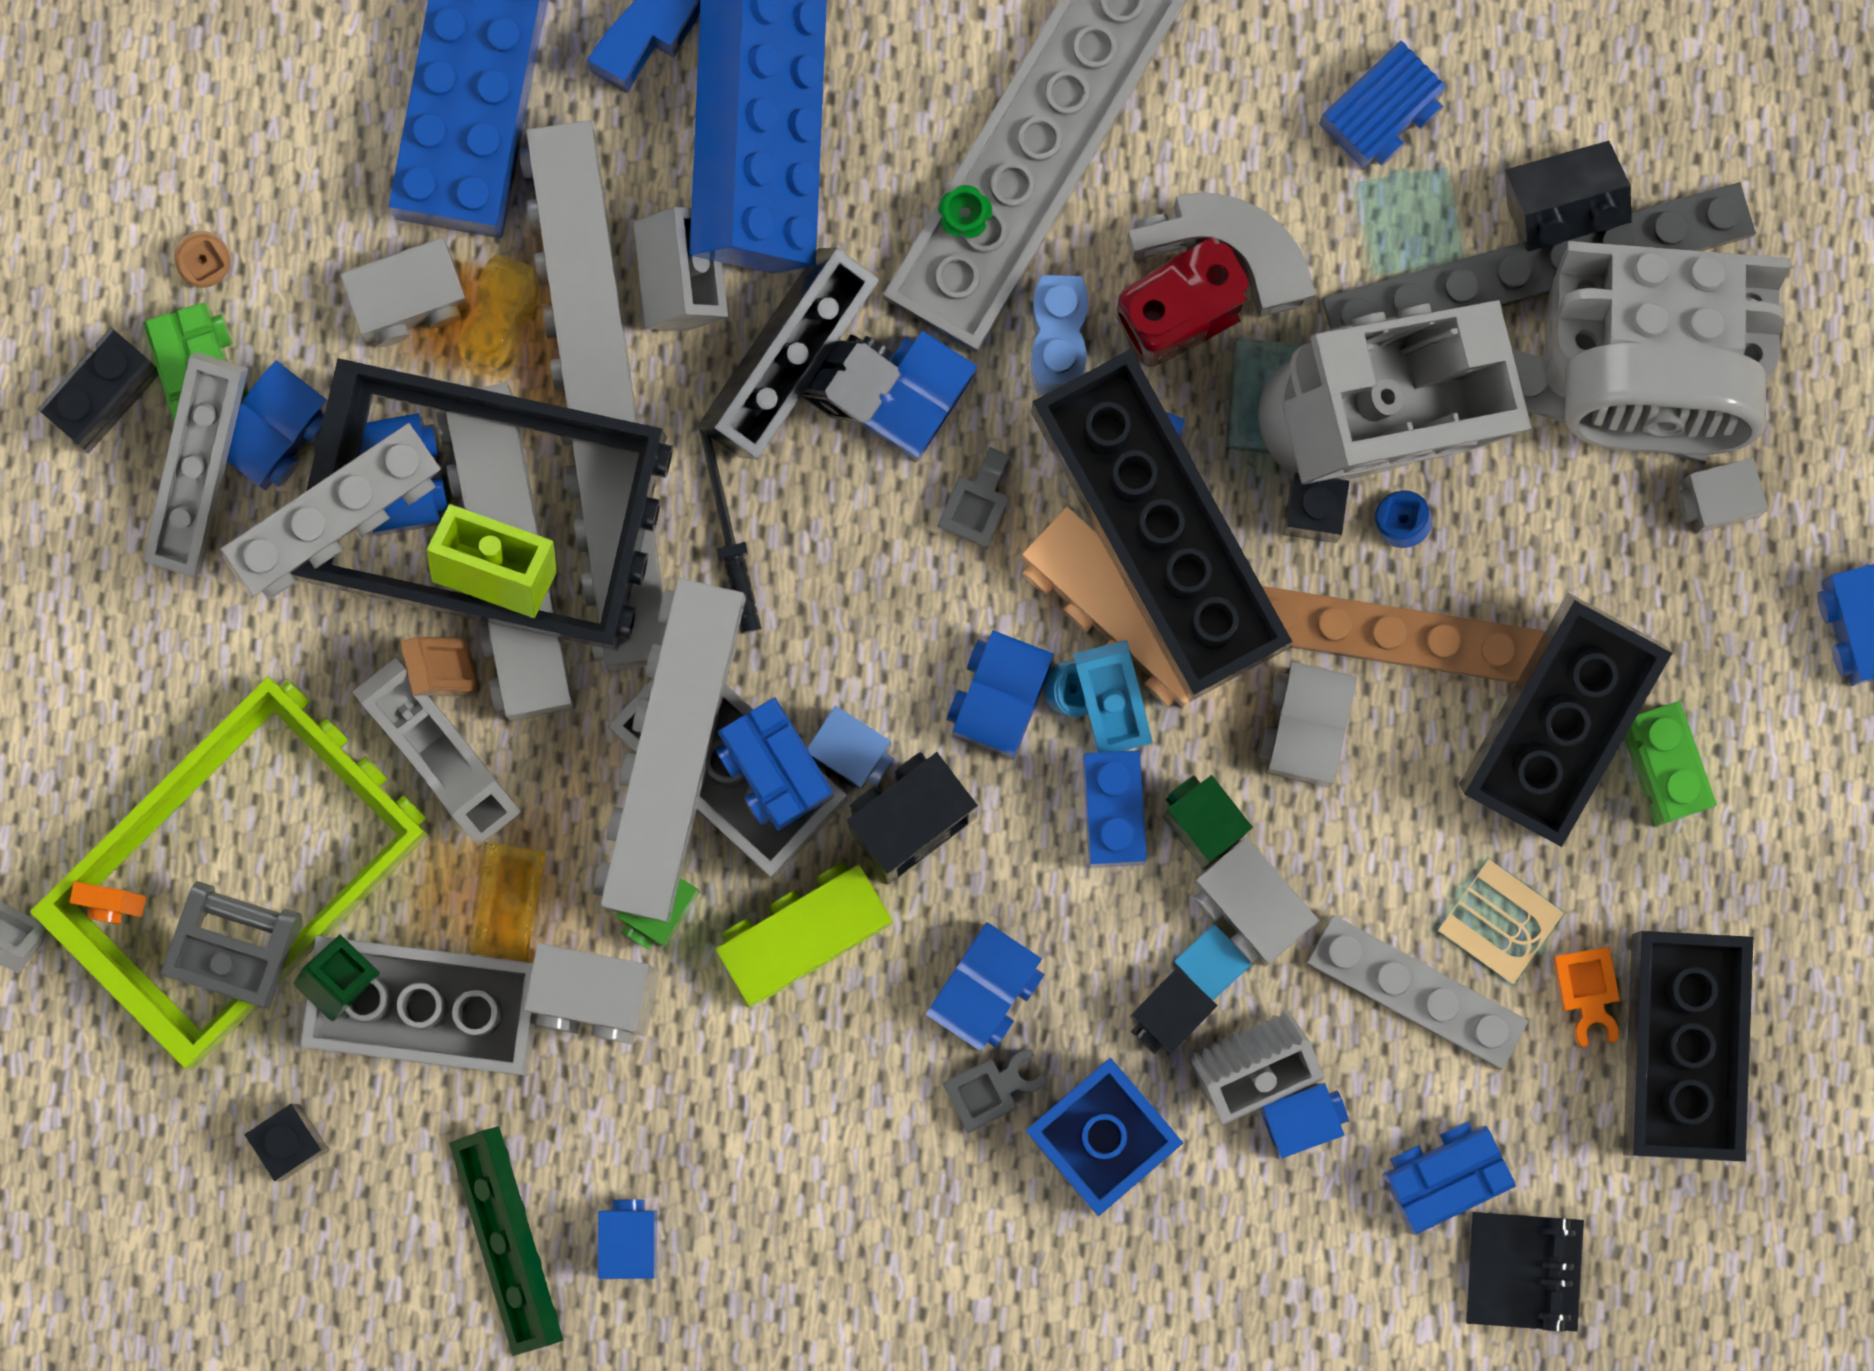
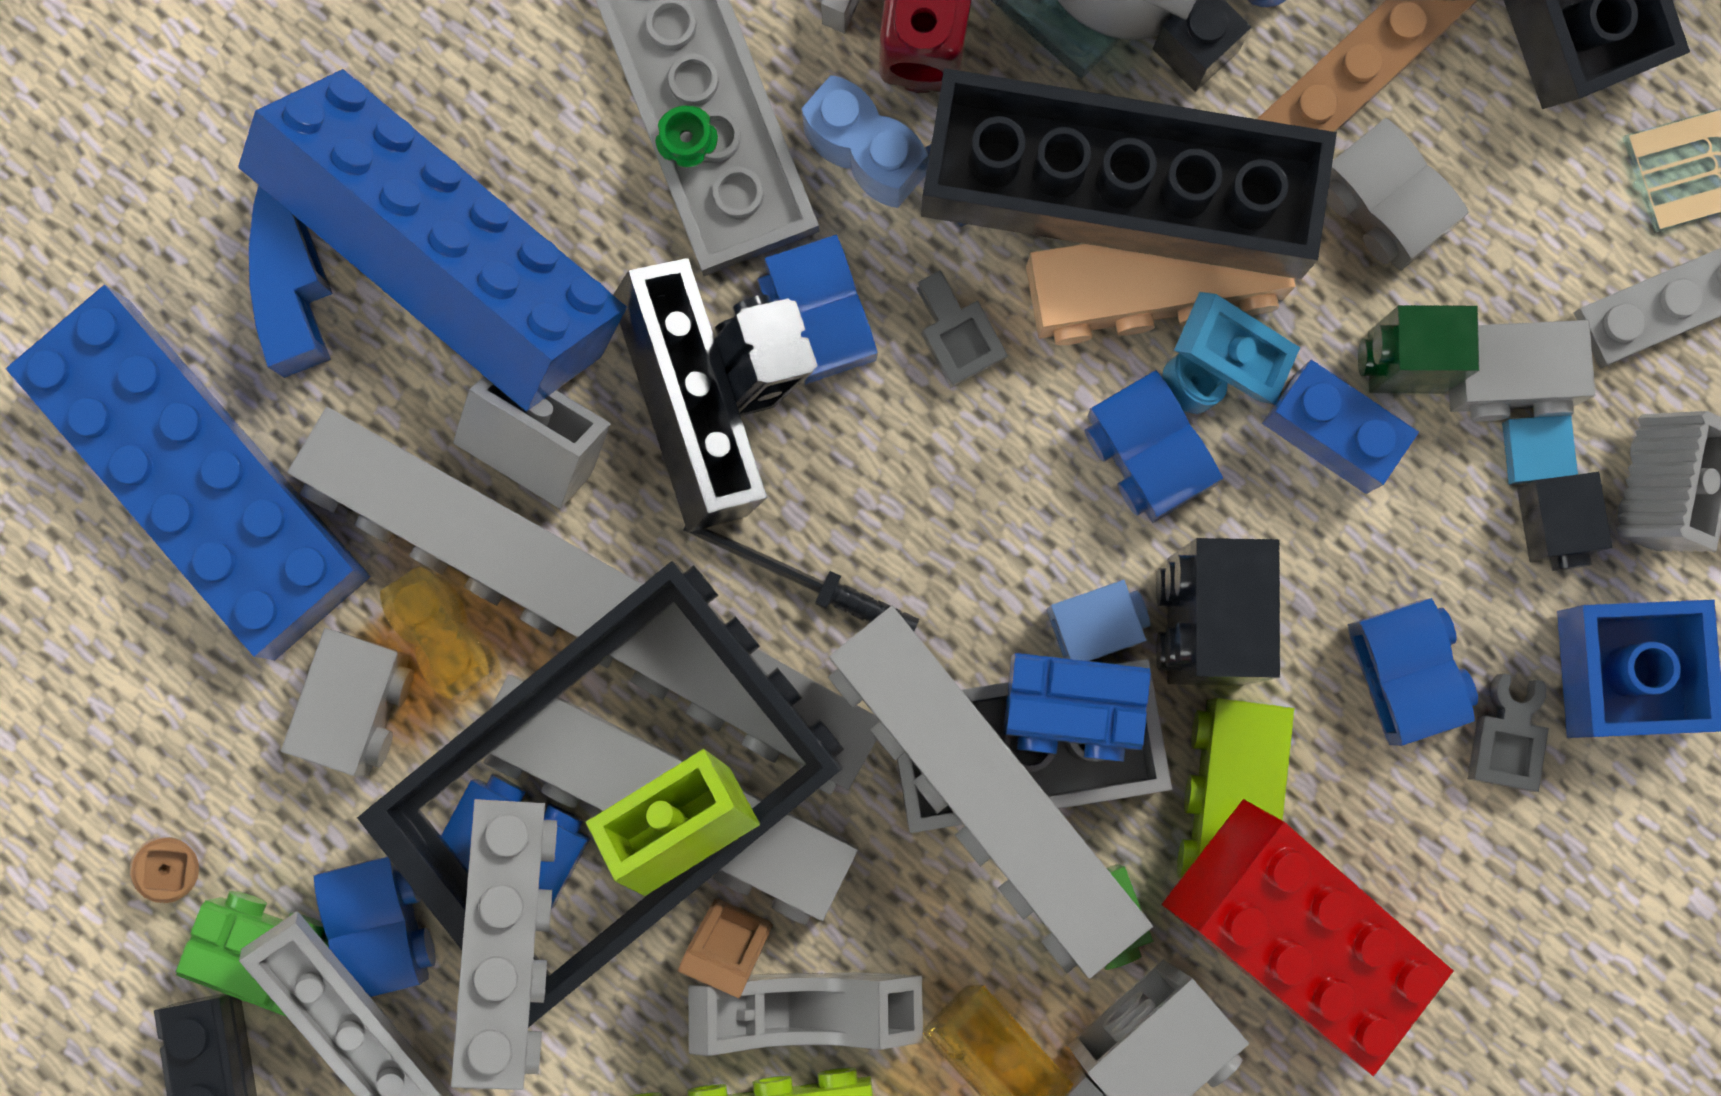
camera: 50 degrees left, 0 degrees up
(742, 1040) = (1308, 936): none -> red brick

